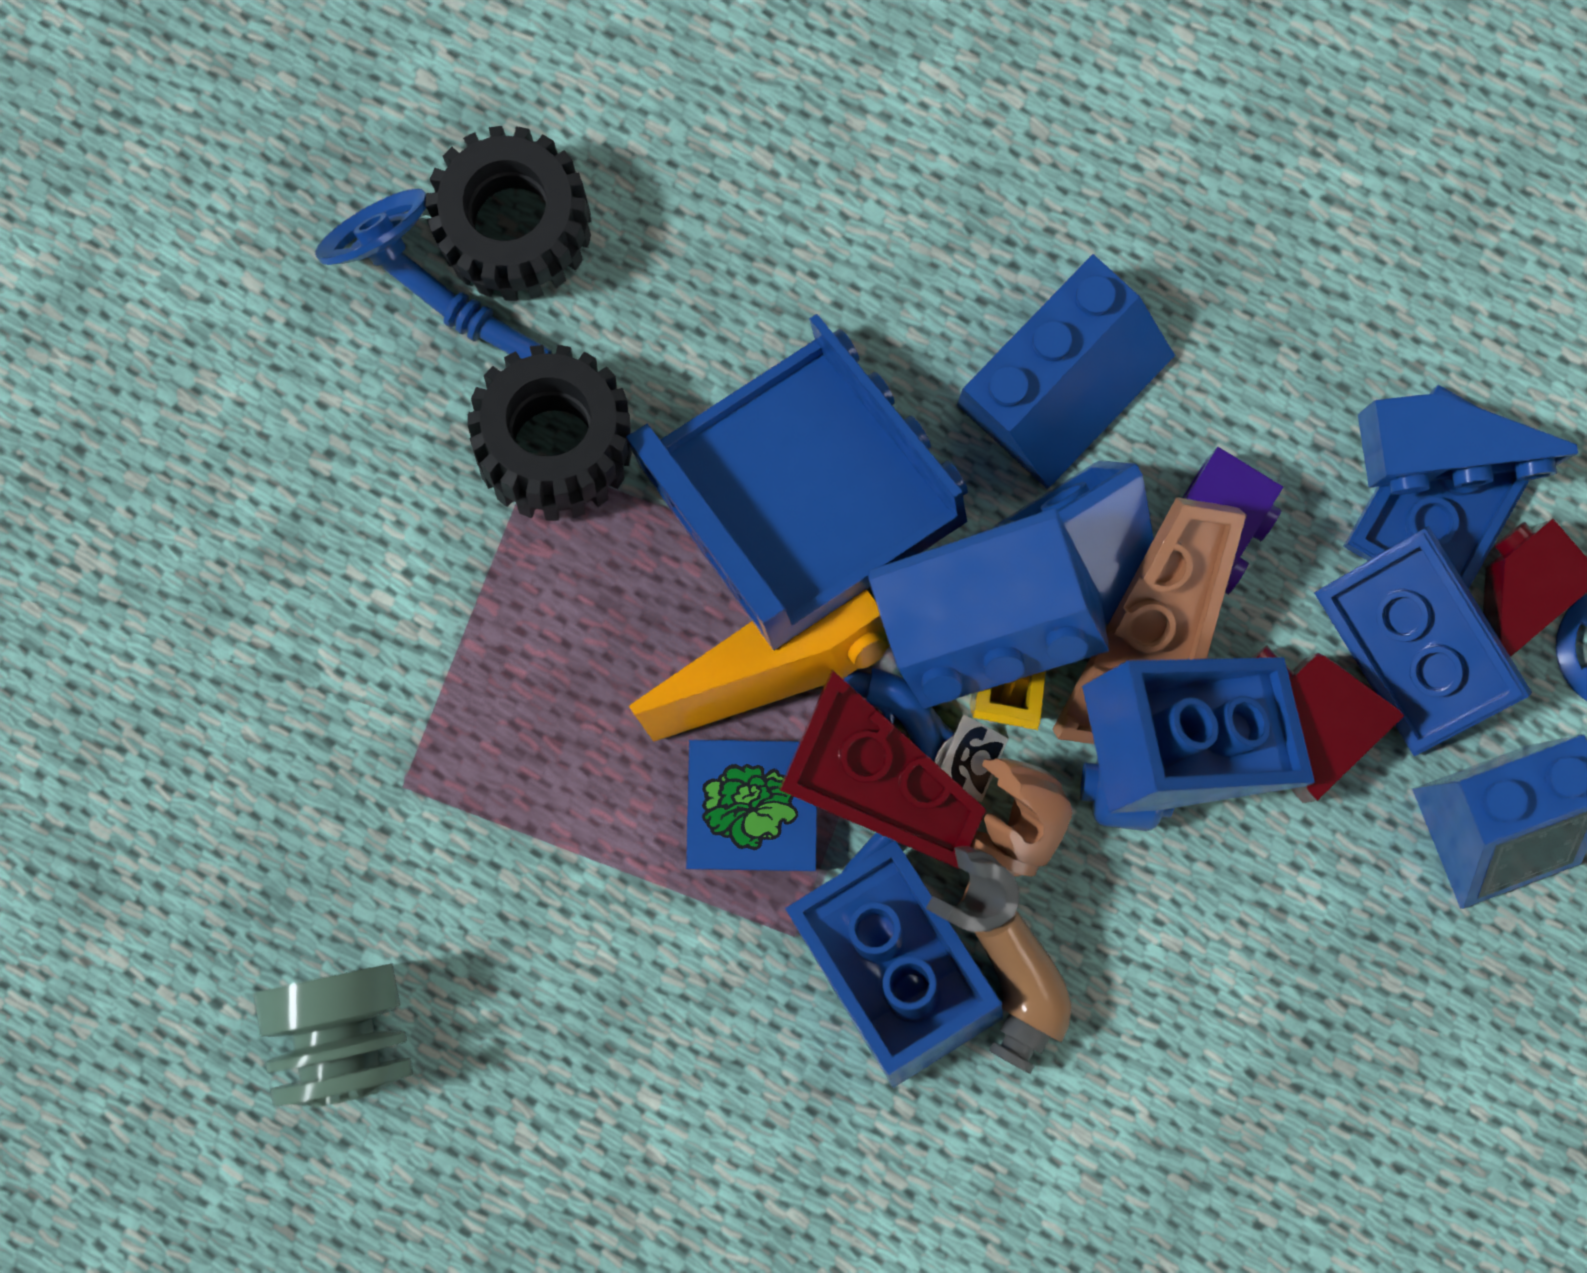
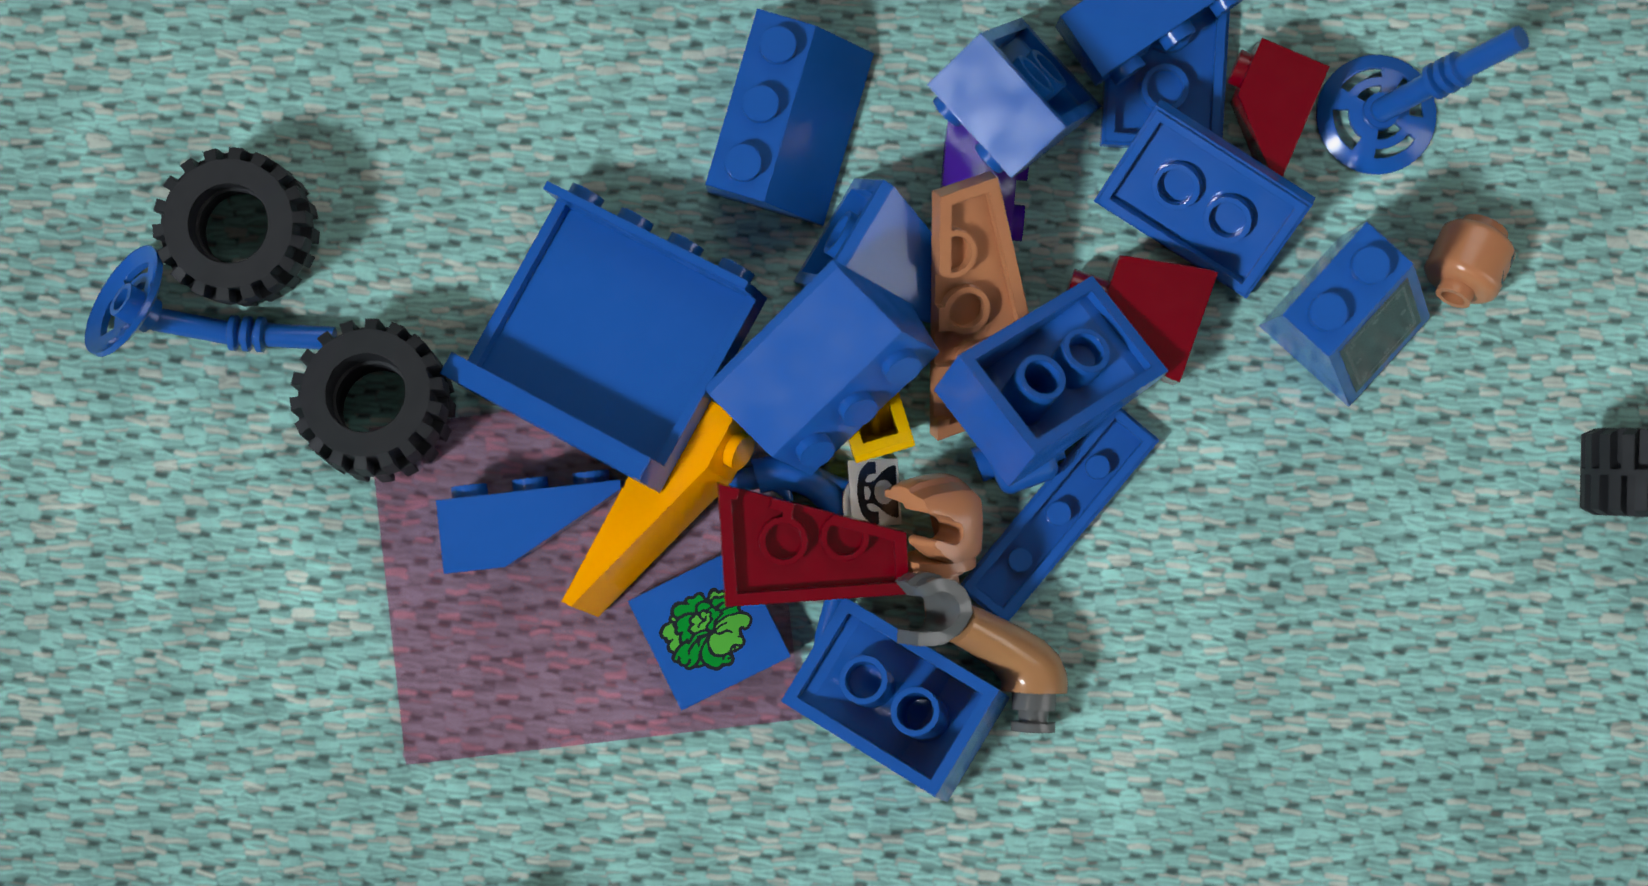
camera: 25 degrees left, 5 degrees up
(615, 613) = (506, 527): none -> blue slope
(1138, 867) = (1058, 514): none -> blue tile
(1289, 450) = (1011, 96): none -> slope

